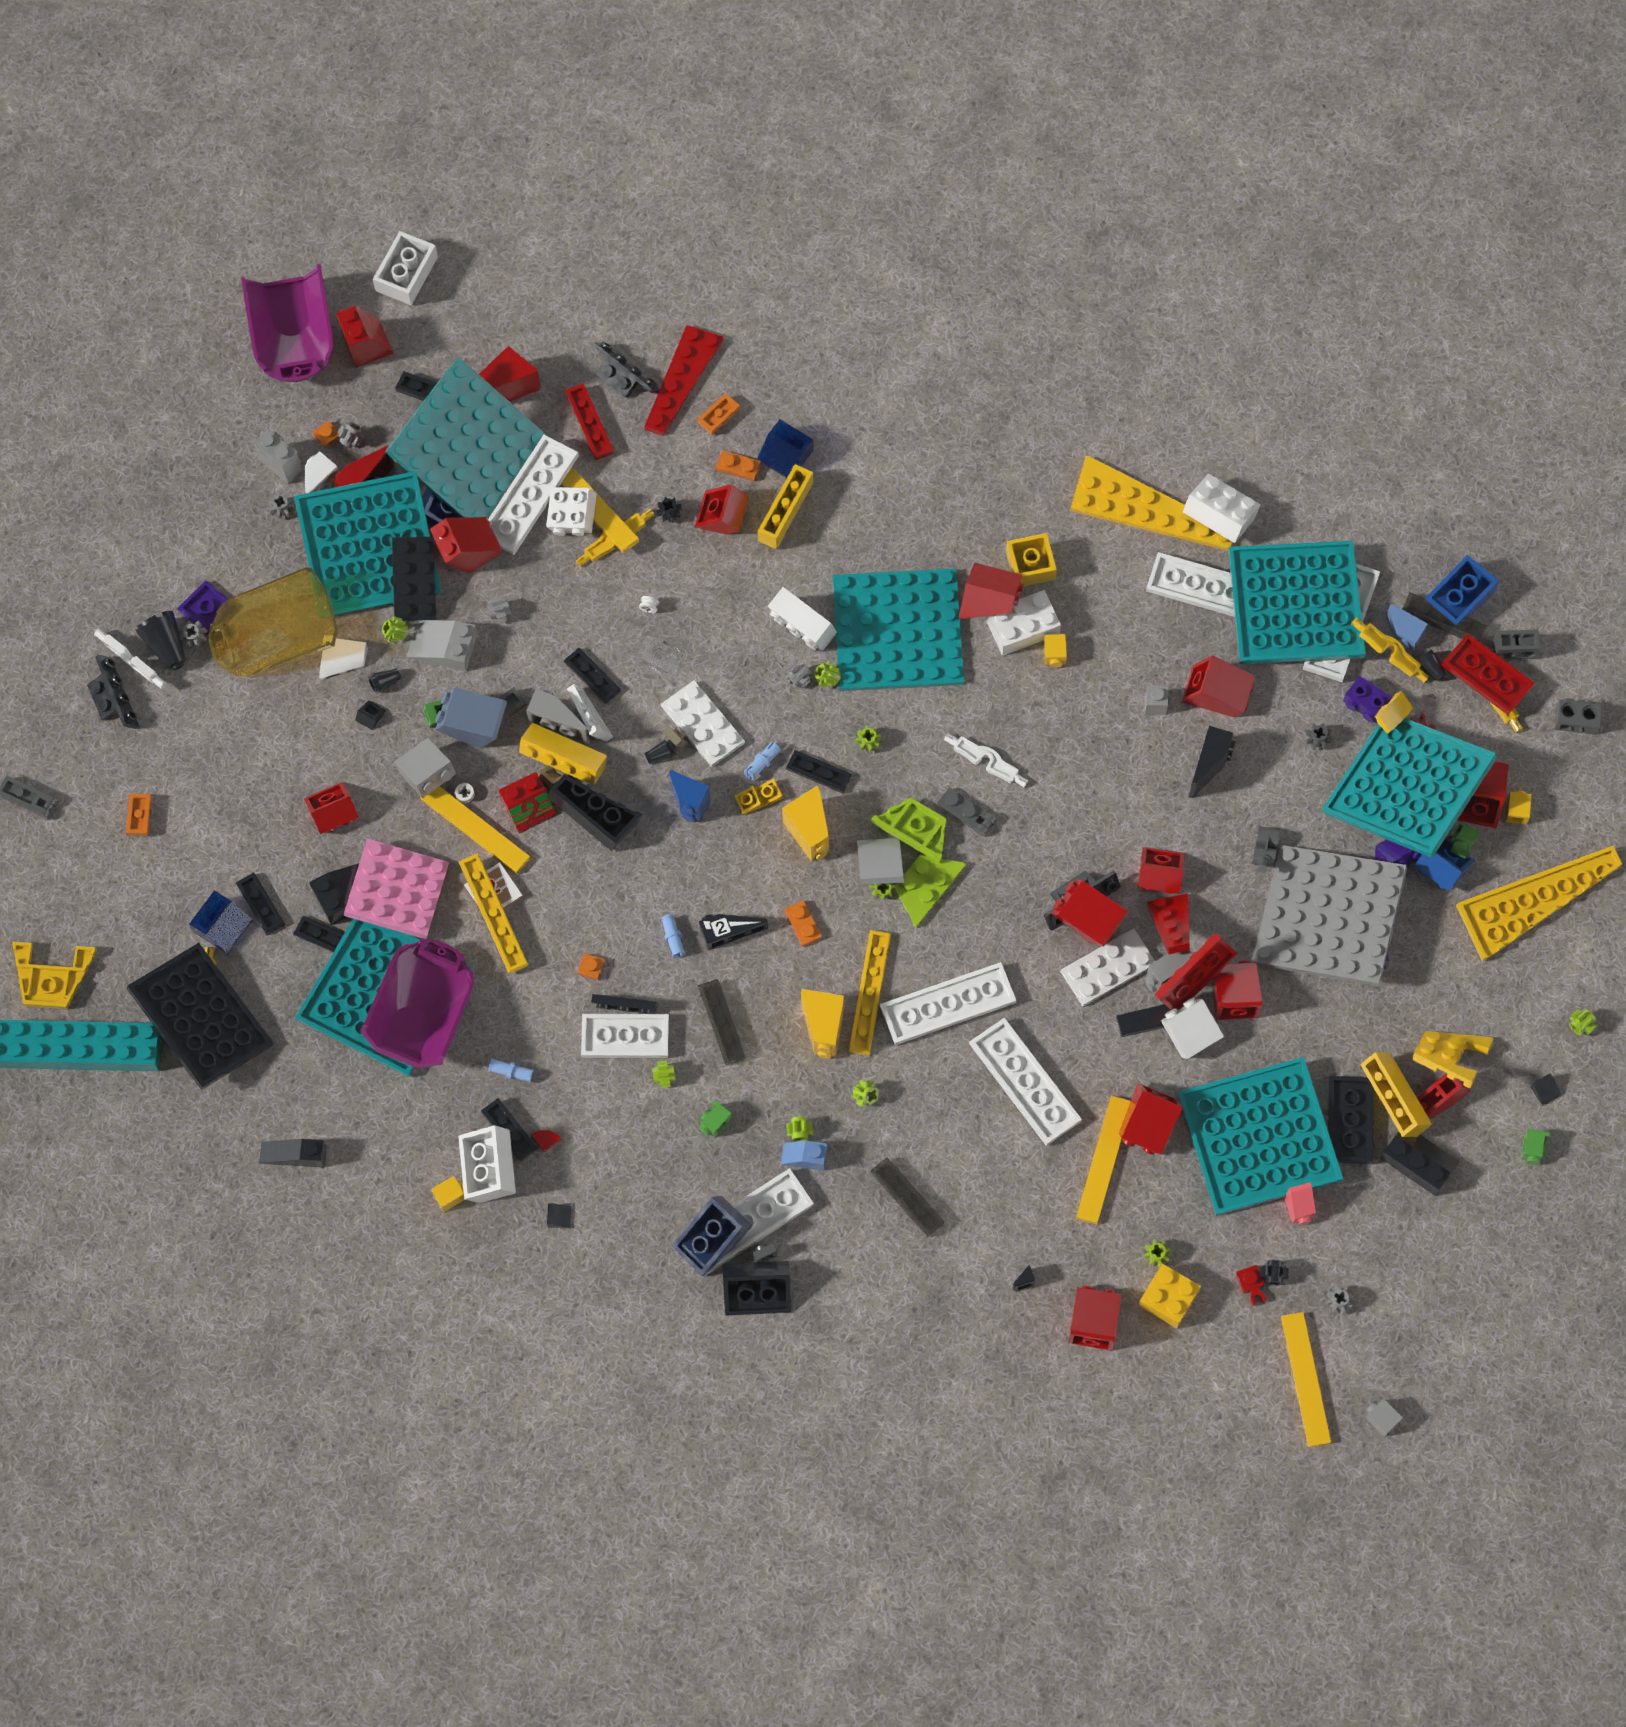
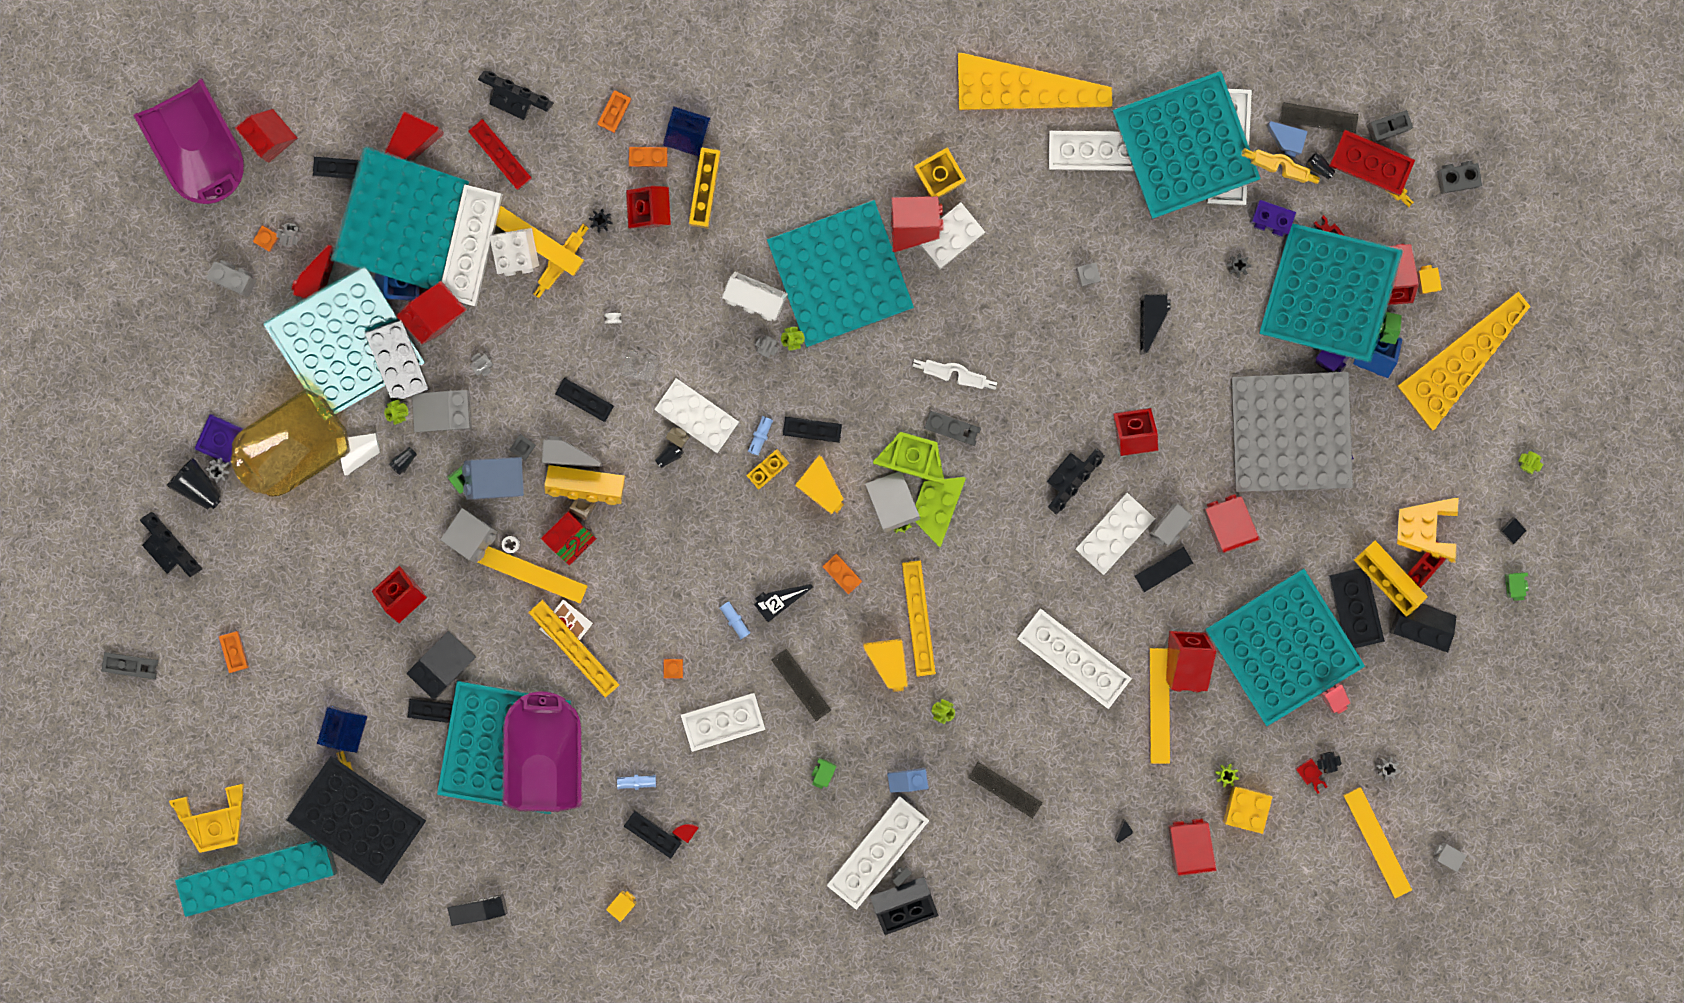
camera: 15 degrees left, 20 degrees up
(134, 662) = (177, 513): white piece -> none
(260, 903) = (368, 699): black tile -> none
(281, 505) = (246, 319): light grey gear -> none
(319, 473) = (277, 290): white slope -> none
(369, 715) = (401, 496): black slope -> none
(396, 888) = (483, 653): bright pink plate -> none
(405, 268) = (279, 52): white brick -> none
(487, 1164) = (645, 874): white brick -> none
(558, 1216) = (719, 895): black slope -> none
(588, 713) = (595, 440): white wing -> none
(594, 811) = (635, 533): black wedge -> none
(624, 1004) = (713, 694): black plate -> none
(663, 1074) = (767, 747): lime gear -> none
(687, 365) = (570, 69): red wing -> none
(690, 796) = (708, 493): blue slope -> none
(711, 1234) = (854, 877): dark blue slope -> none
(799, 1128) = (897, 759): lime gear -> none
(868, 745) = (851, 389): lime gear -> none
(947, 1003) = (988, 609): white plate -> none
(1055, 650) = (985, 253): yellow brick -> none
(1089, 912) = (1088, 497): red slope -> none
(1172, 921) = (1159, 479): red wing -> none
(1191, 1027) = (1203, 571): white brick -> none
(1196, 972) = (1197, 525): red plate -> none
(1219, 687) = (1139, 246): red slope -> none
(1221, 508) = (1095, 72): white brick -> none
(1266, 848) = (1219, 386): dark grey beam -> none
(1393, 713) = (1299, 230): yellow slope -> none
(1463, 590) = (1329, 90): blue slope -> none

